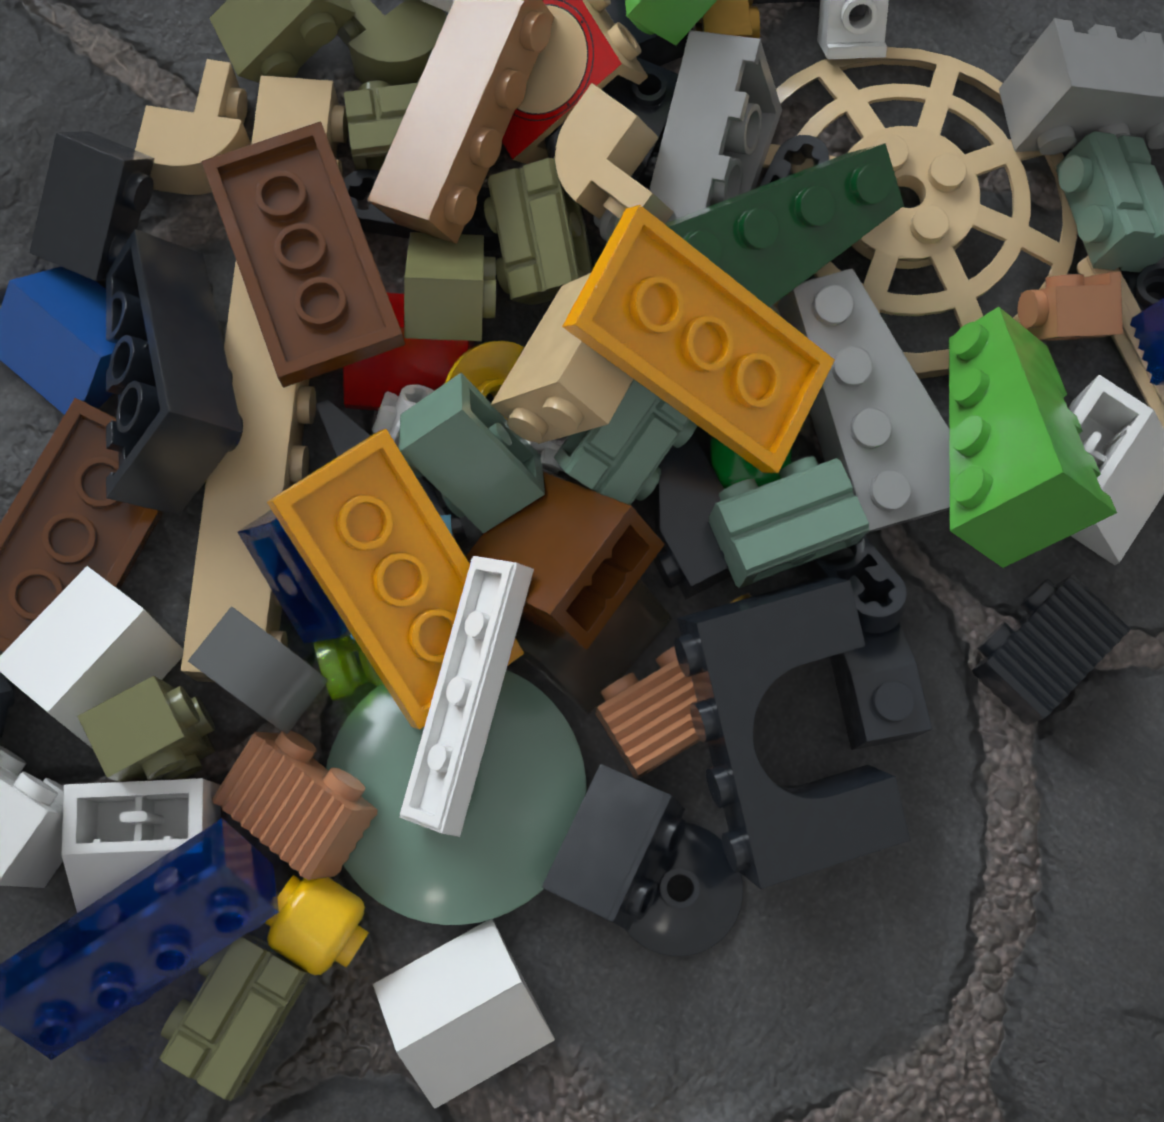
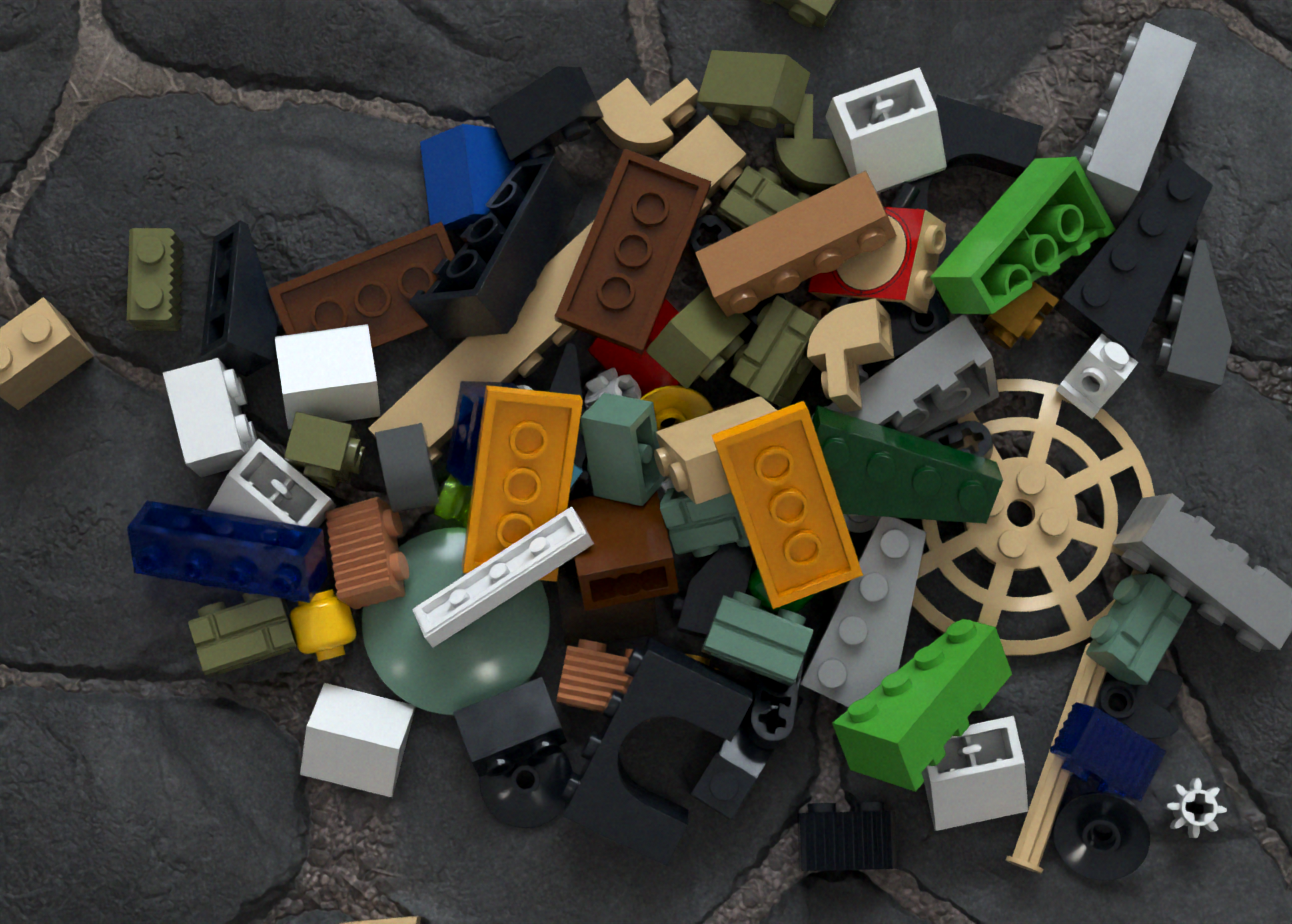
camera: 45 degrees right, 5 degrees up
(1073, 307) = (1047, 665): nougat brick -> none

